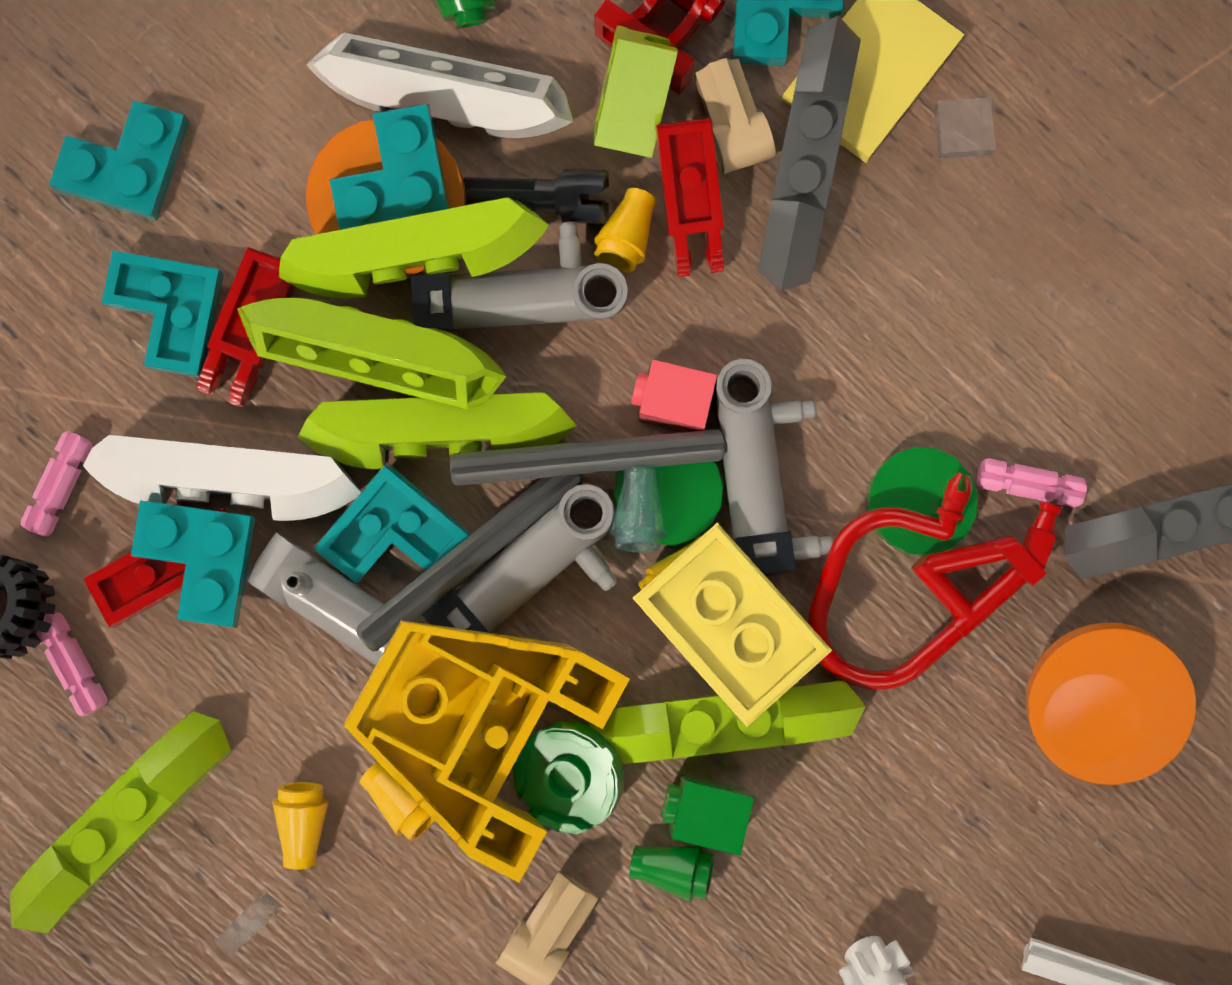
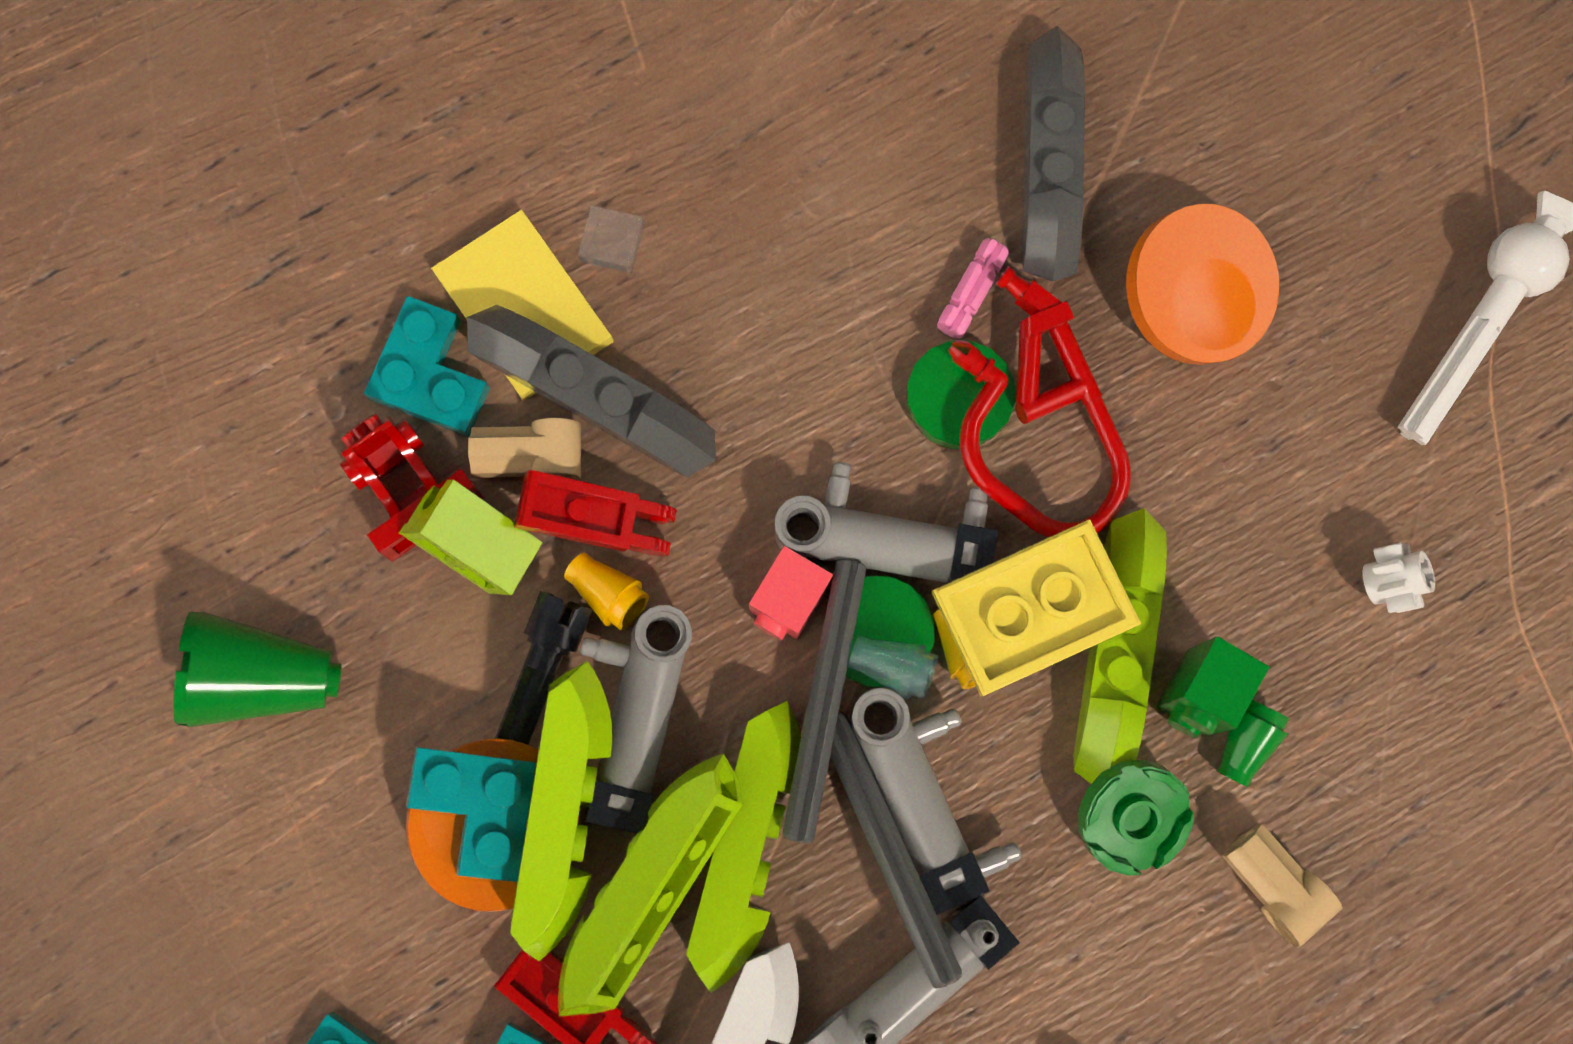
camera: 75 degrees left, 5 degrees down
(389, 513) = (819, 919): teal plate -> none
(395, 803) = (1111, 996): yellow cone -> none
(454, 714) = (1050, 910): yellow wedge -> none
(457, 88) = (382, 747): white brick -> none

